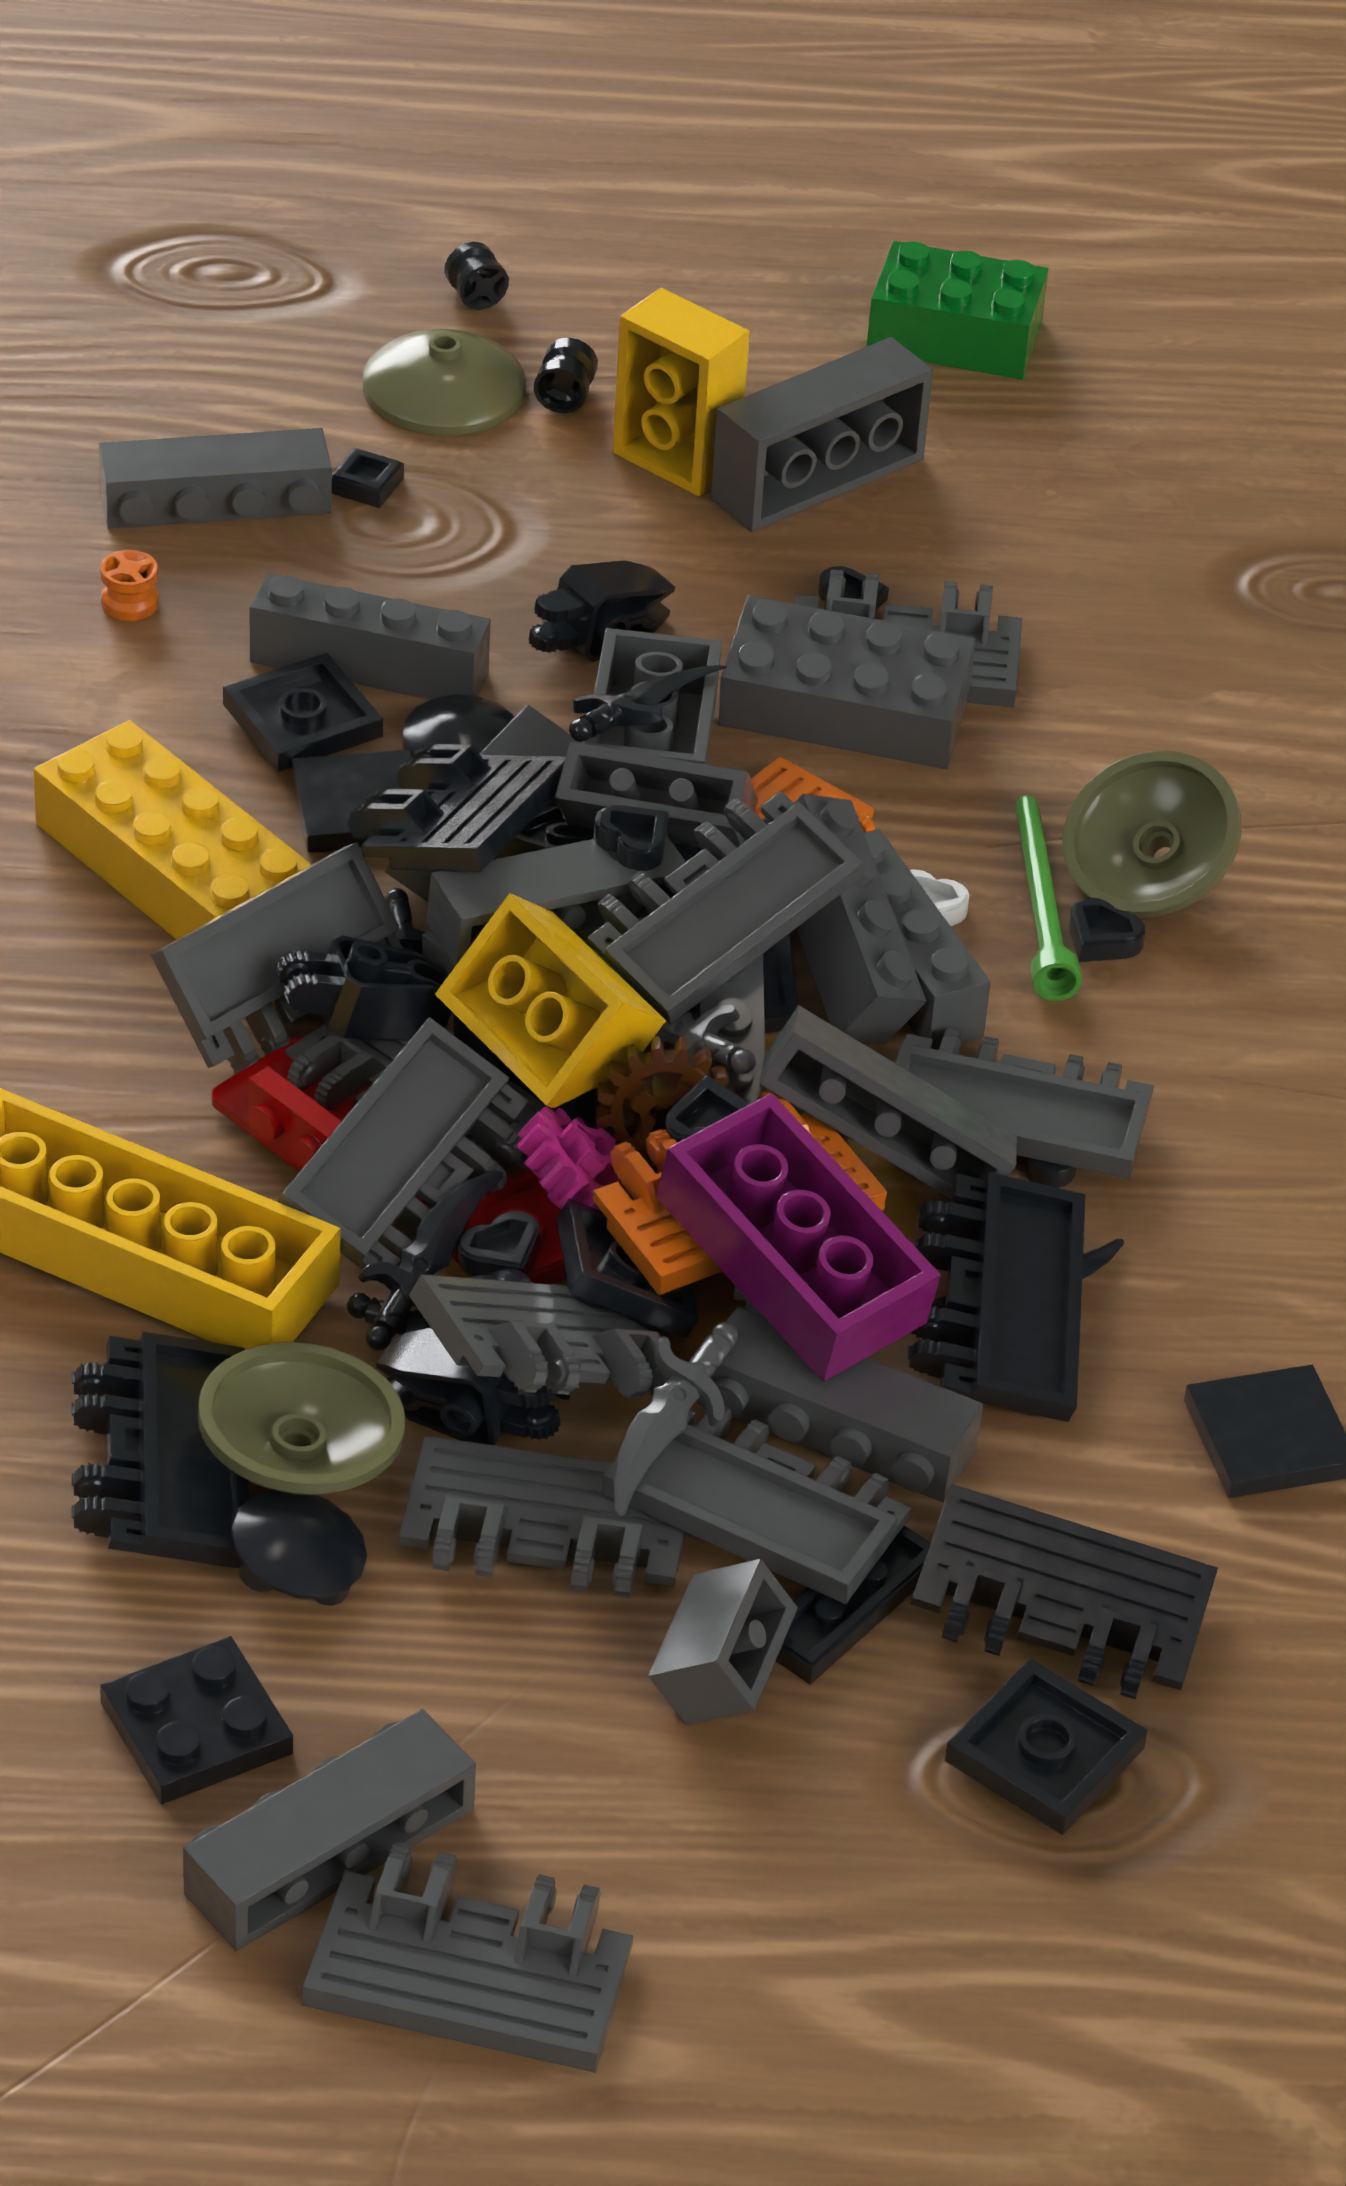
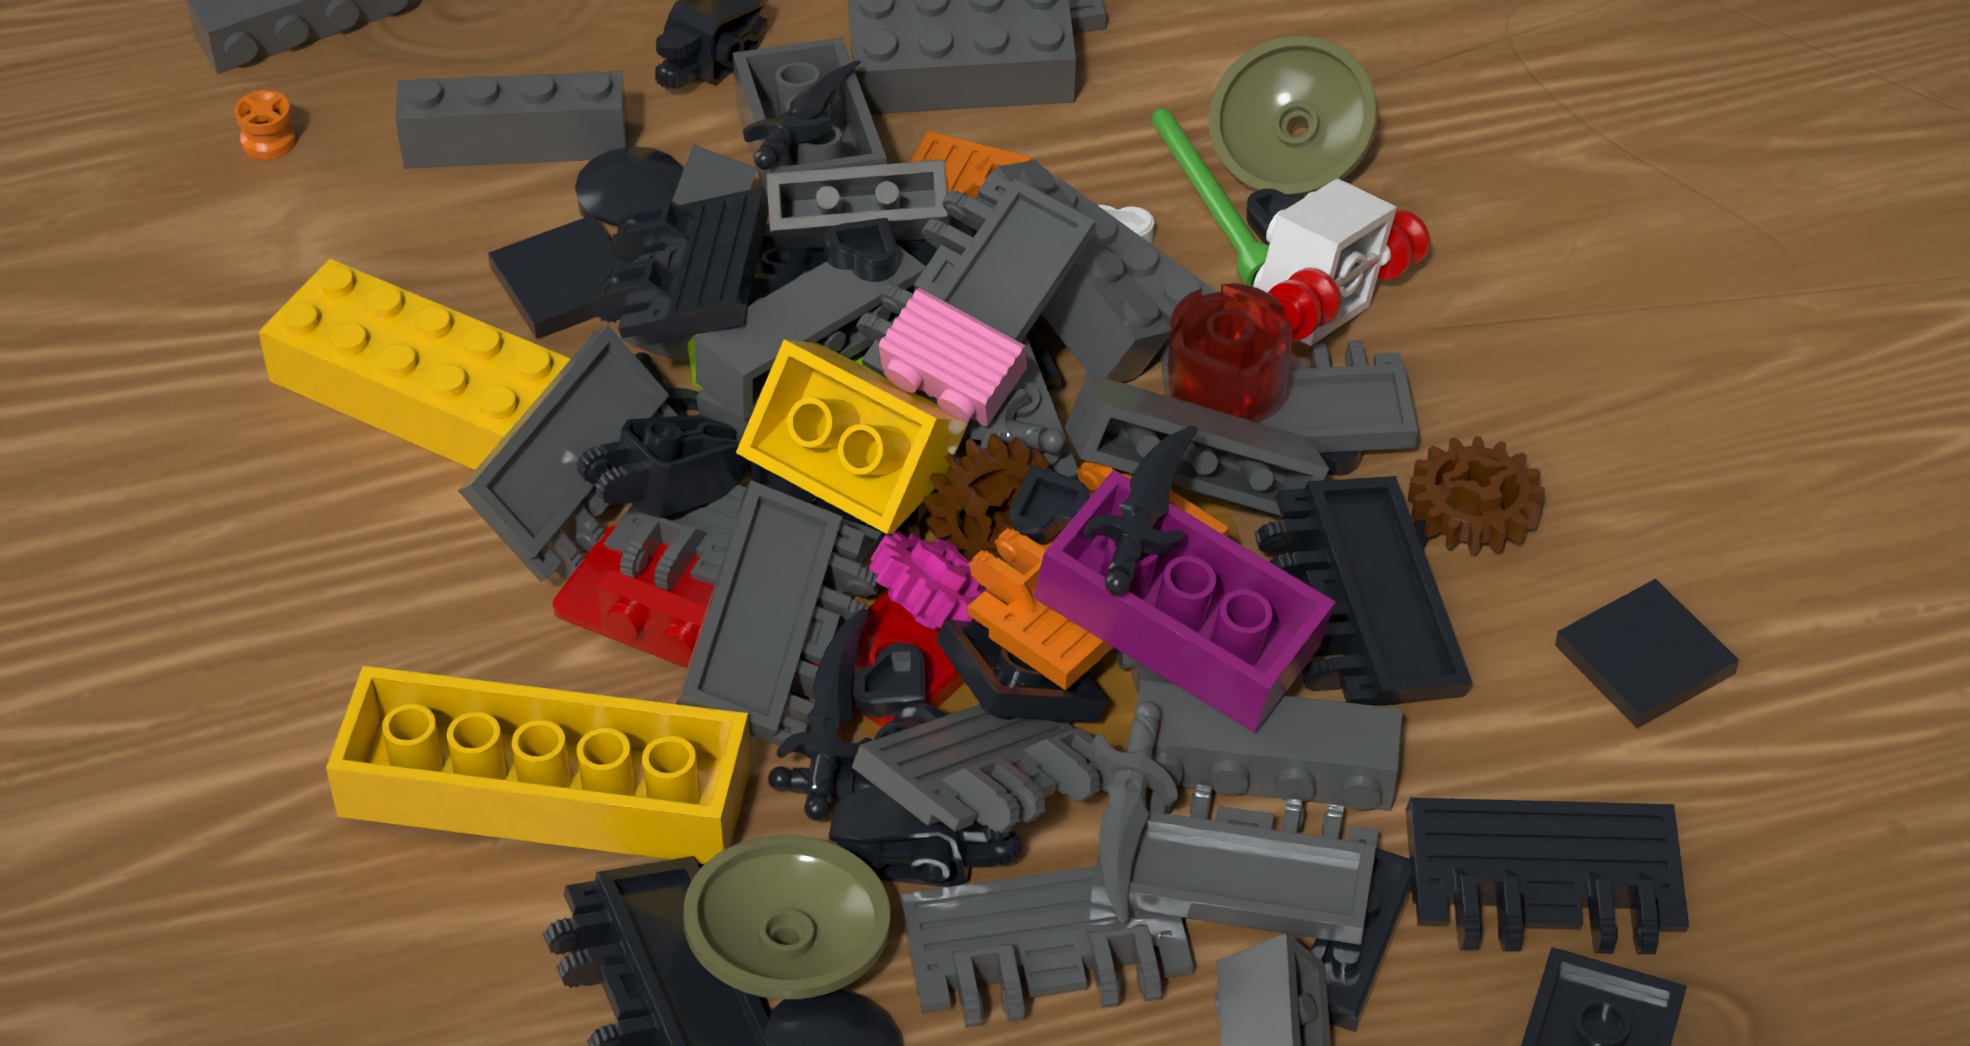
camera: 15 degrees left, 5 degrees up
(302, 711) = (478, 204): black plate -> none
(666, 954) = (951, 358): none -> bright pink brick
(789, 1129) = (1140, 511): none -> black piece
(965, 1030) = (1230, 351): none -> clear red brick
(1117, 974) = (1332, 252): none -> white brick
(1166, 1237) = (1472, 492): none -> reddish brown gear

